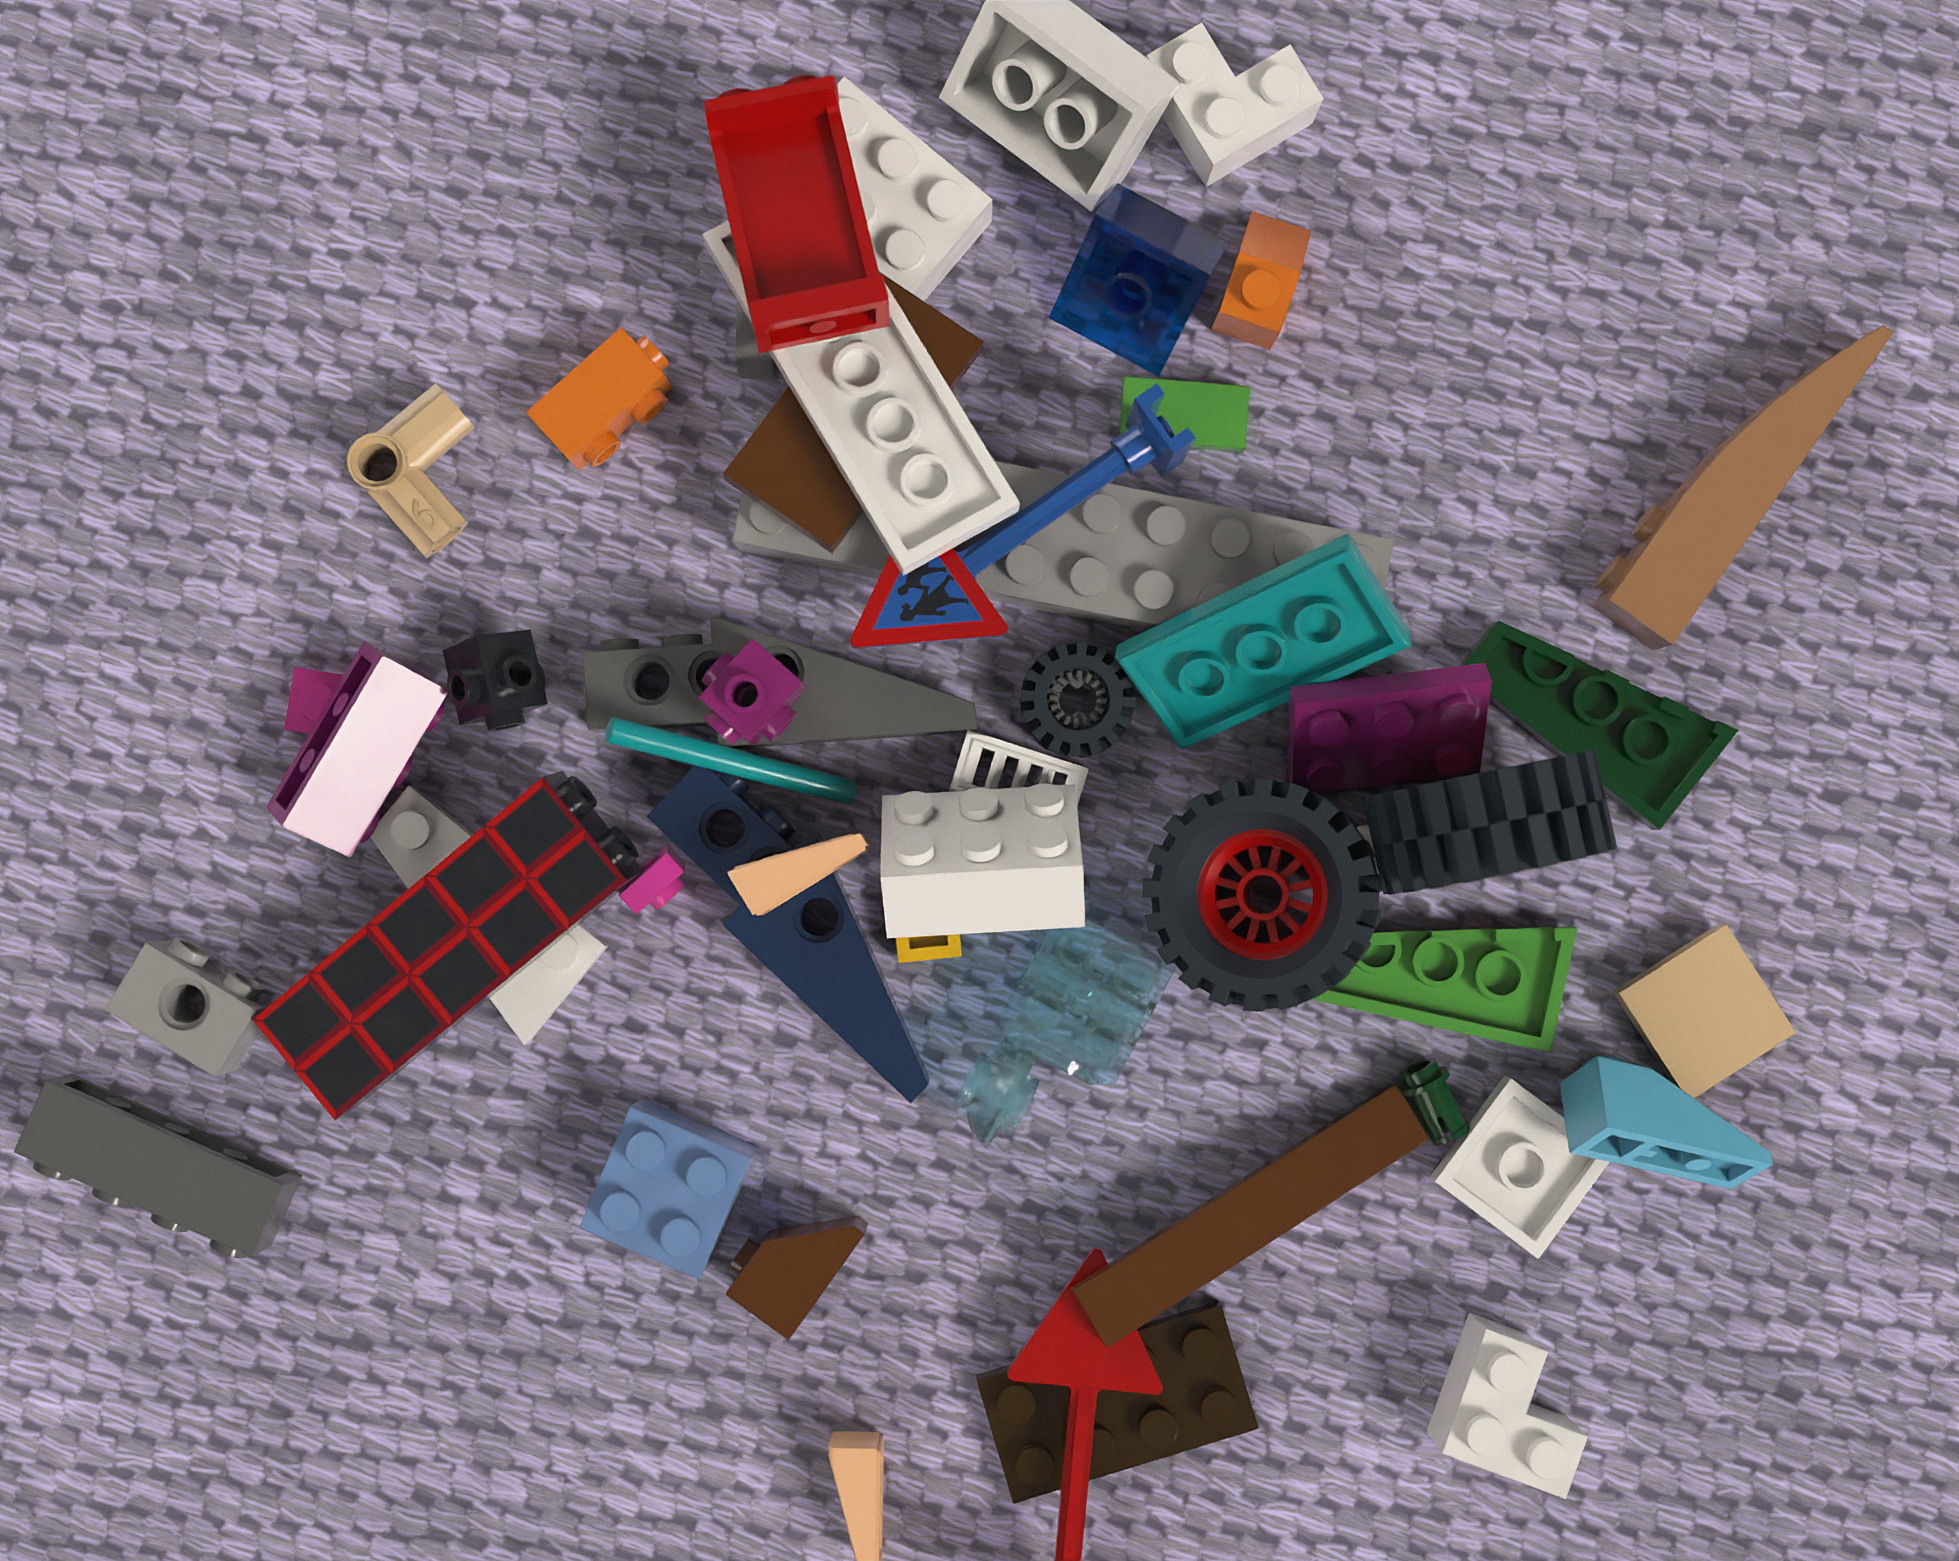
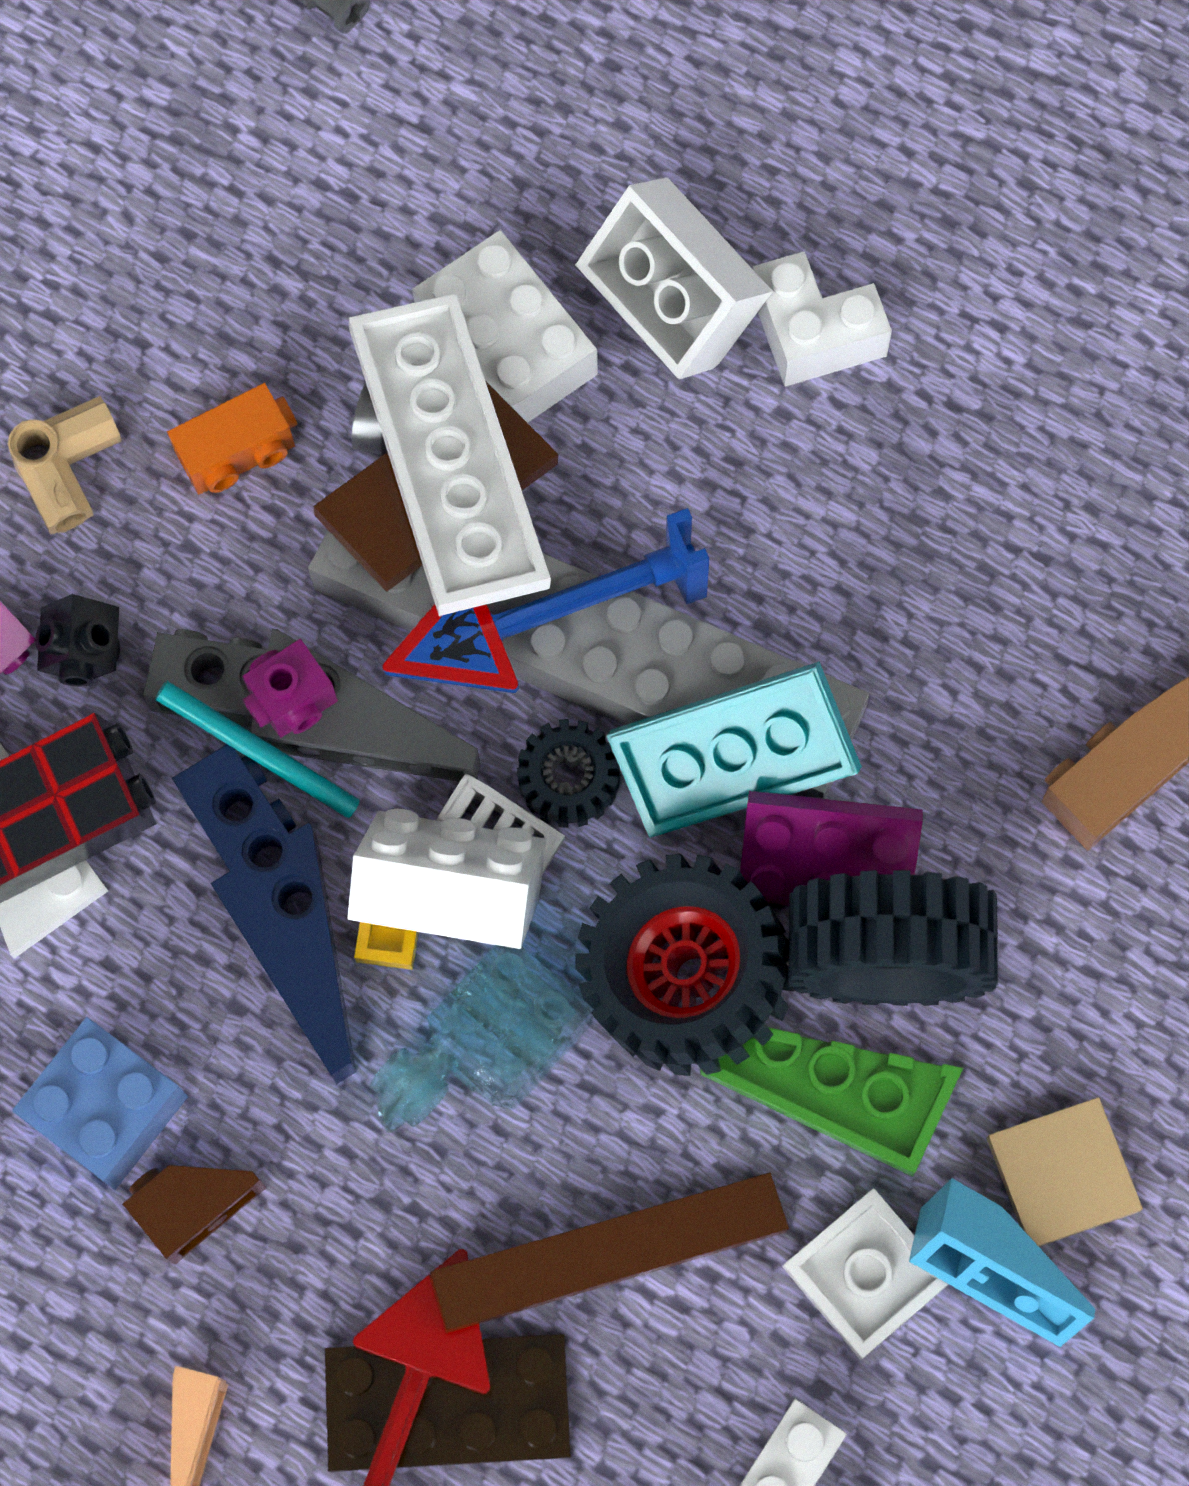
camera: 20 degrees right, 15 degrees down
(657, 882) = (163, 840): dark pink plate -> none
(778, 878) = (278, 847): light nougat slope -> none
(795, 213) = (427, 316): red panel -> none
(1137, 278) = (706, 442): clear blue slope -> none
(1210, 410) = (737, 564): bright green tile -> none
(1262, 281) = (809, 468): orange slope -> none
(1434, 1100) = (801, 1195): dark green pin -> none
(1644, 743) = (1042, 915): dark green wing -> none

